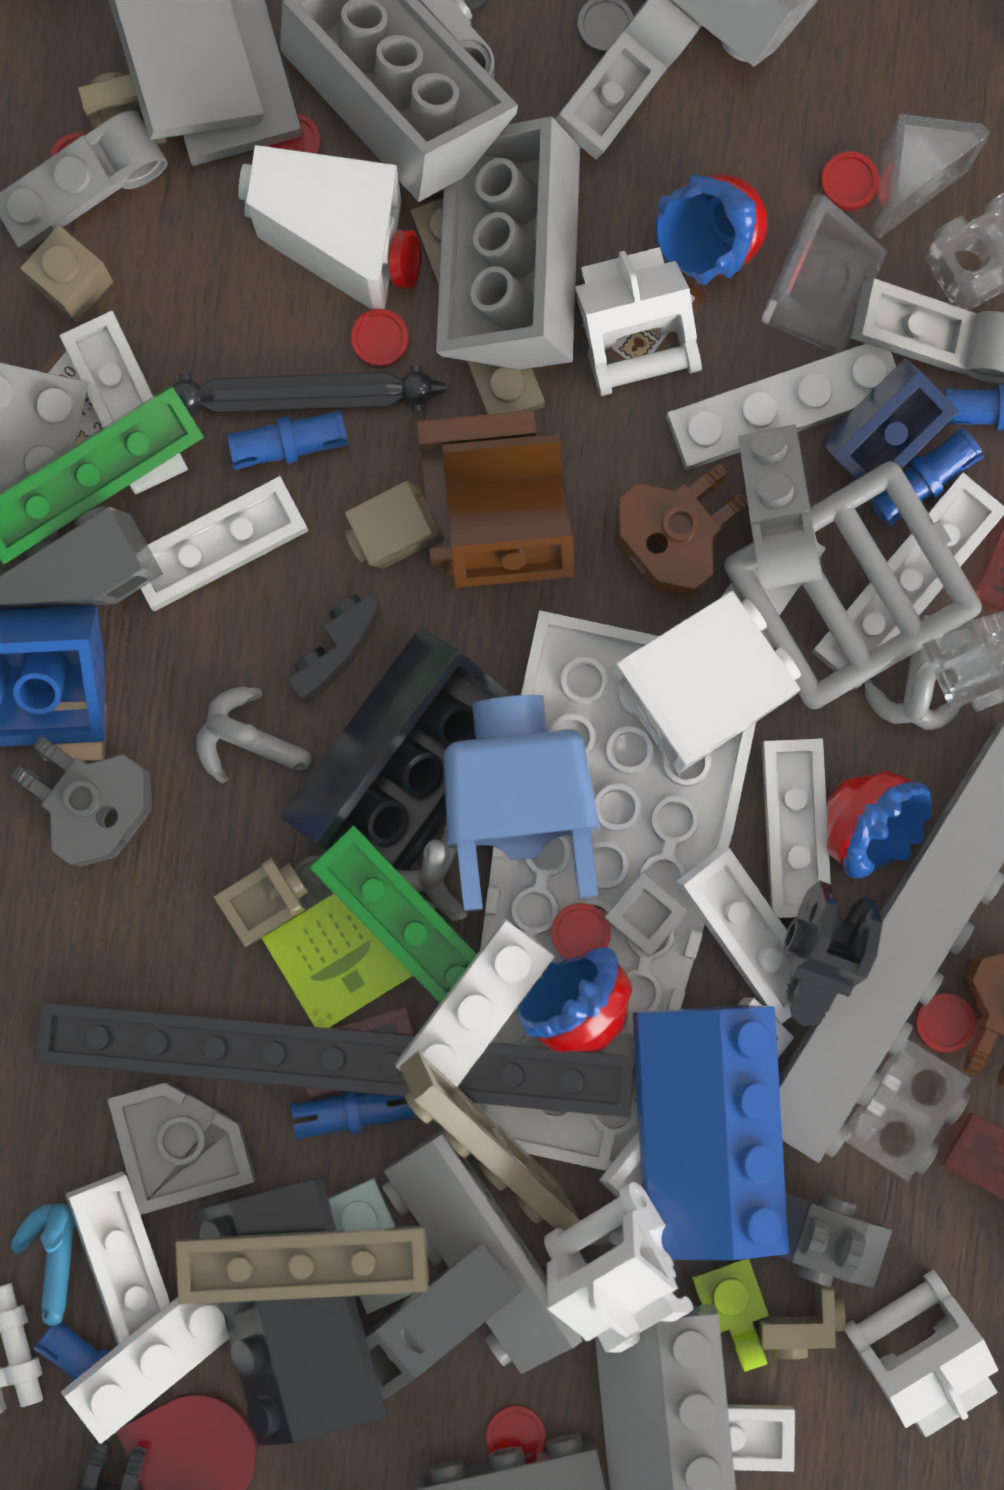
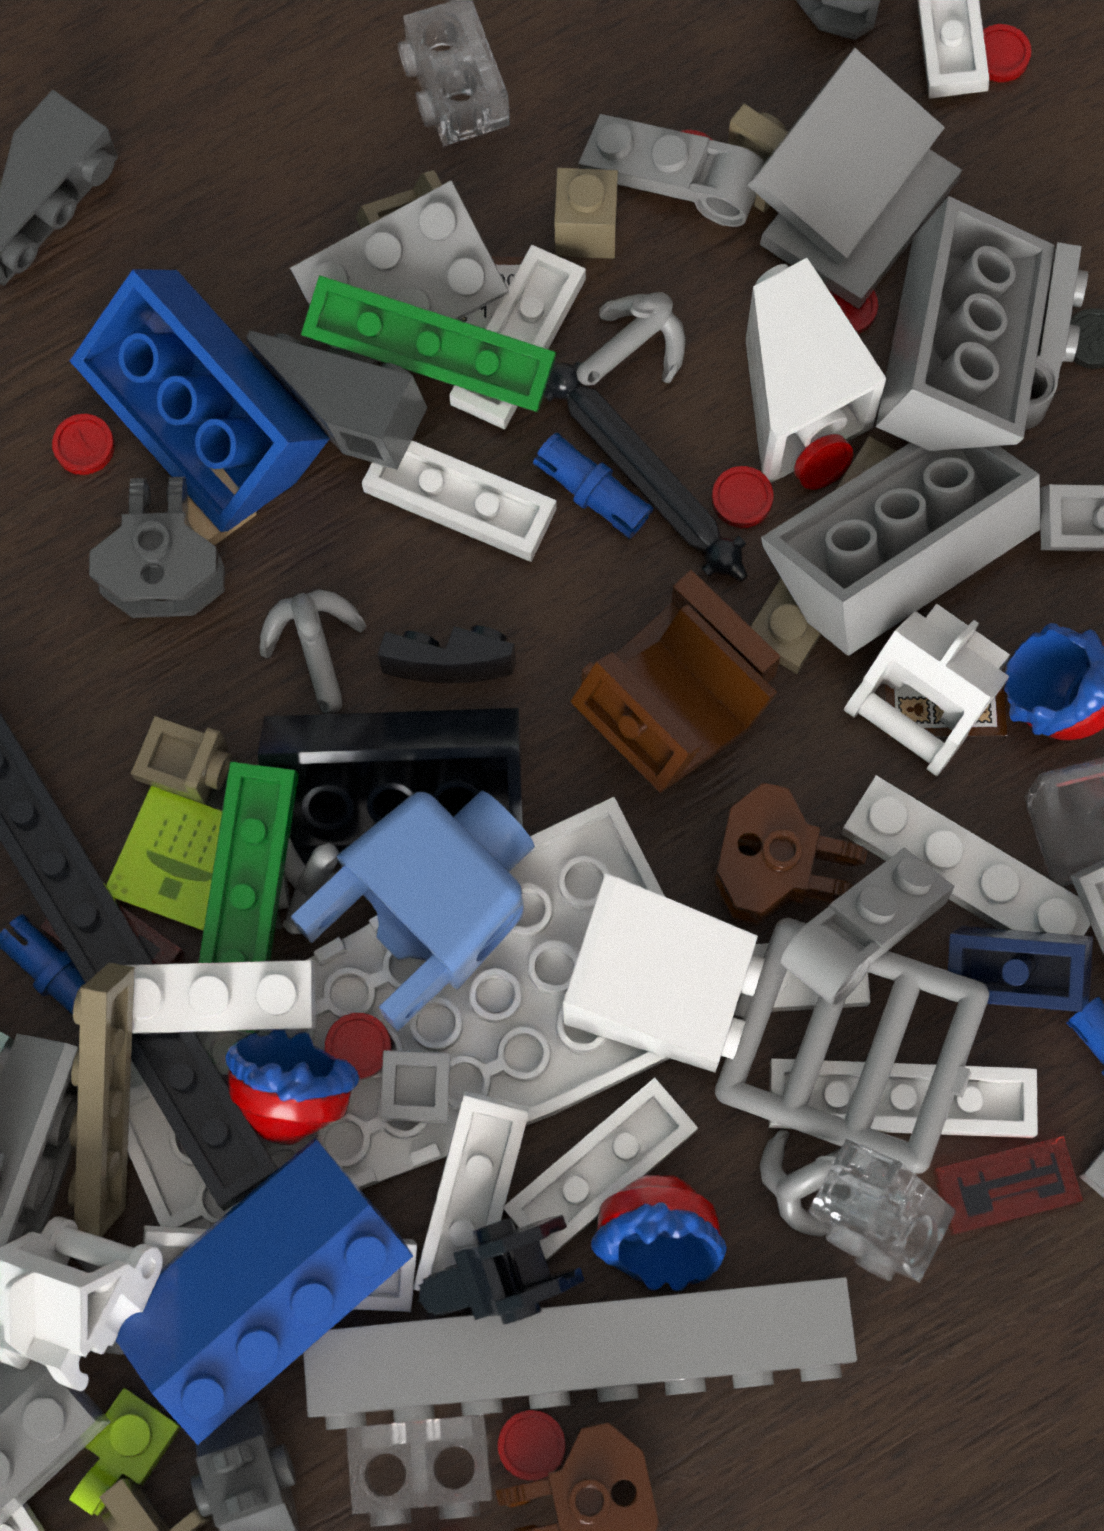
camera: 55 degrees right, 10 degrees down
(192, 291) = (652, 315): none -> light grey piece
(392, 526) = (587, 619): dark tan brick -> none
(932, 473) = (1016, 1043): blue pin -> none

